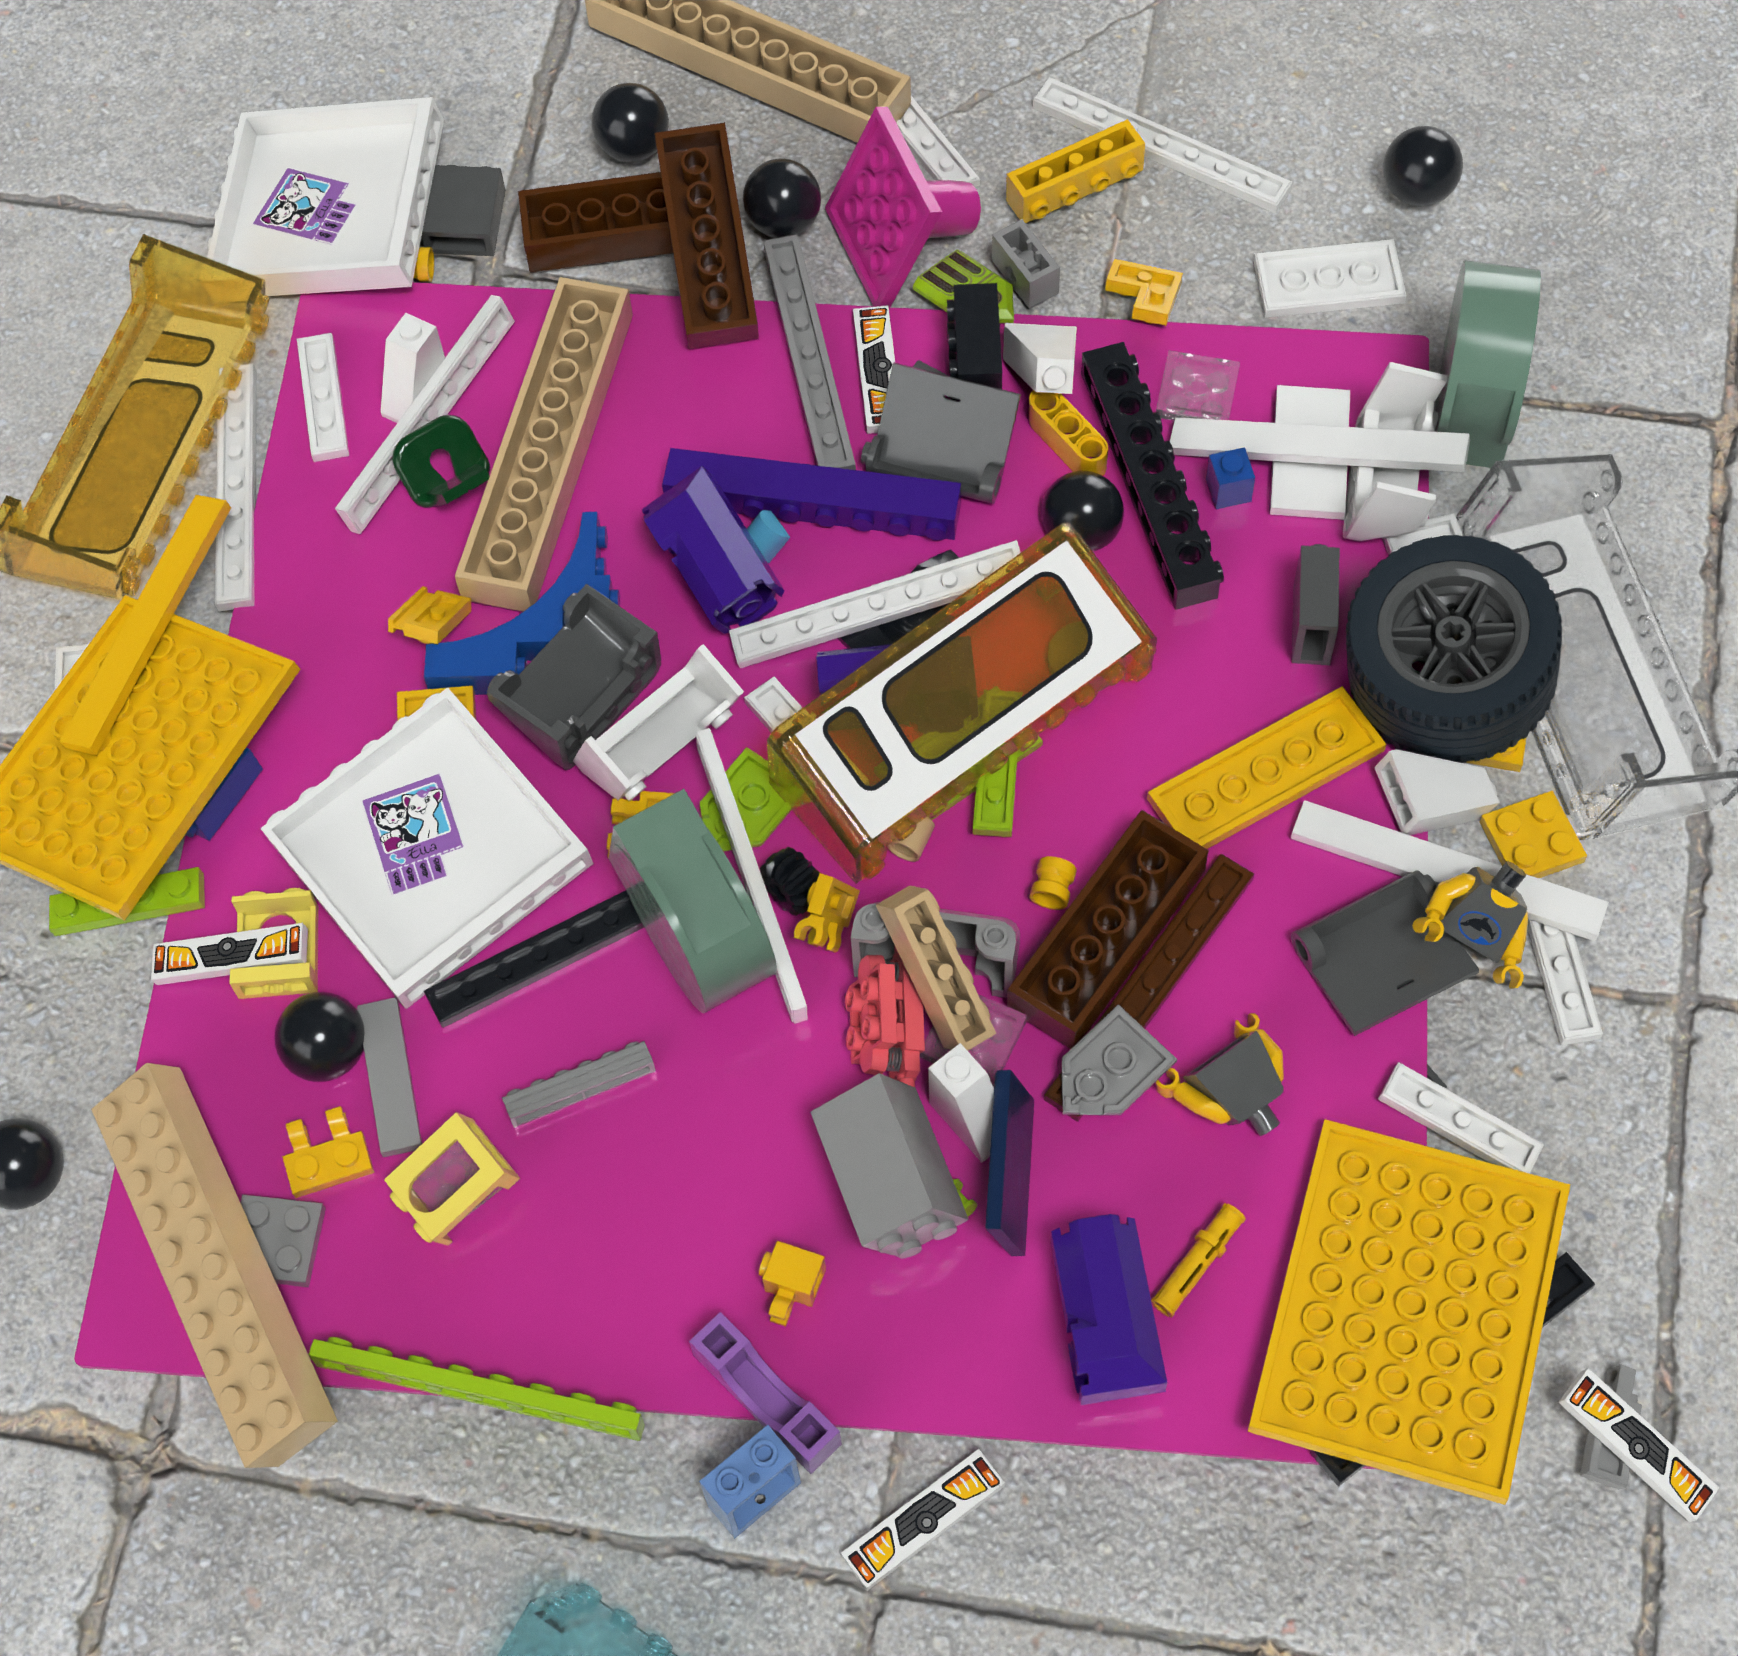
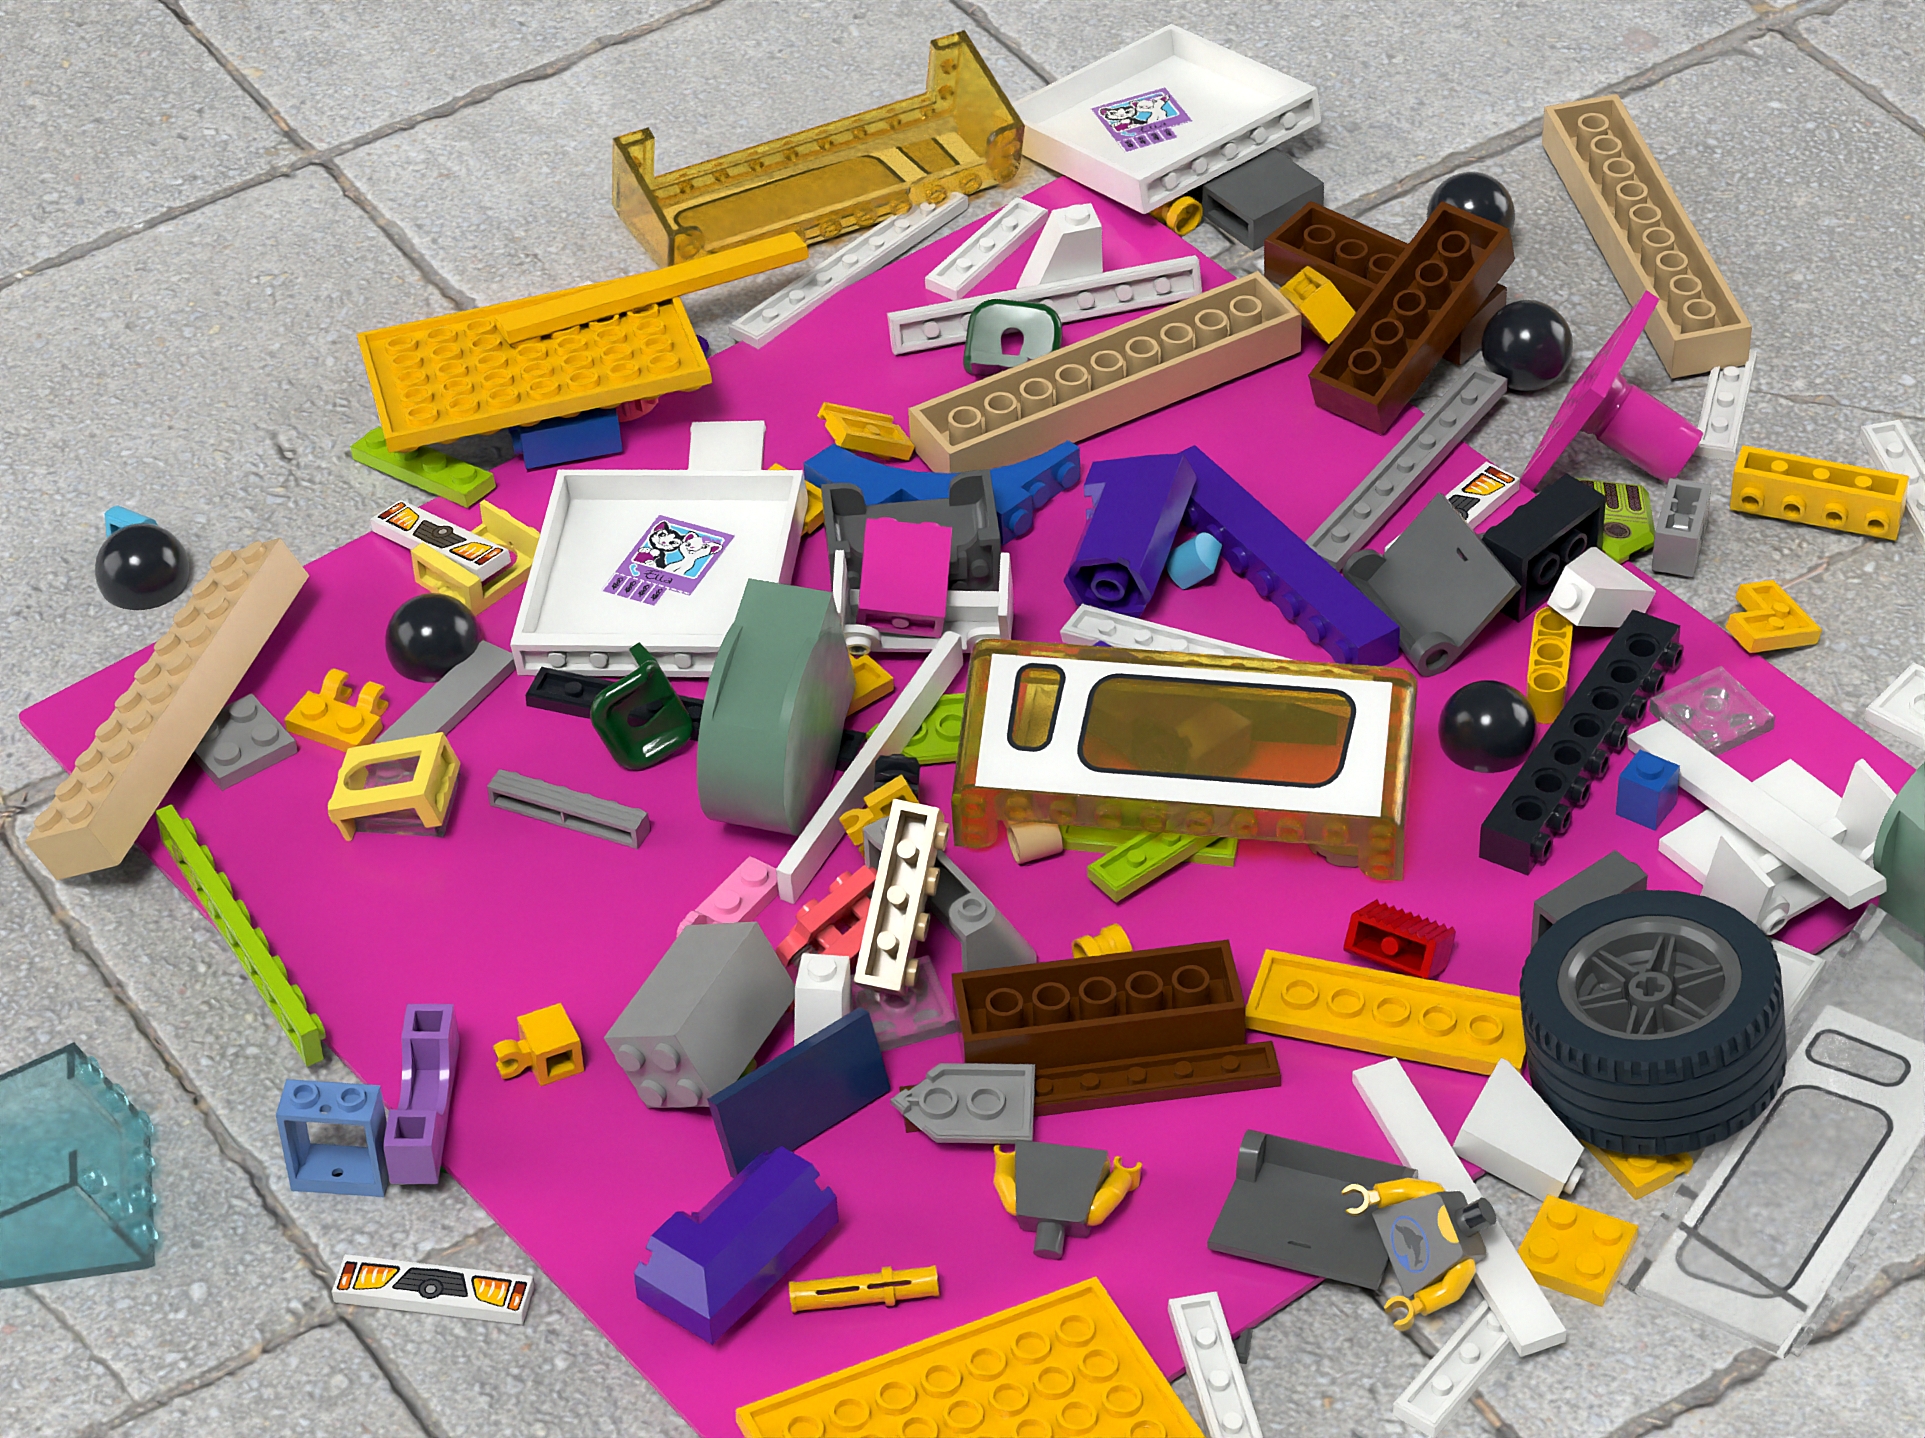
camera: 45 degrees right, 20 degrees down
(341, 712) = (727, 445): none -> white piece
(573, 995) = (661, 736): none -> dark green piece
(620, 711) = (904, 577): none -> dark pink panel
(624, 269) = (1319, 302): none -> yellow brick
(775, 1055) = (738, 897): none -> bright pink hinge
(1217, 714) = (1399, 940): none -> red brick

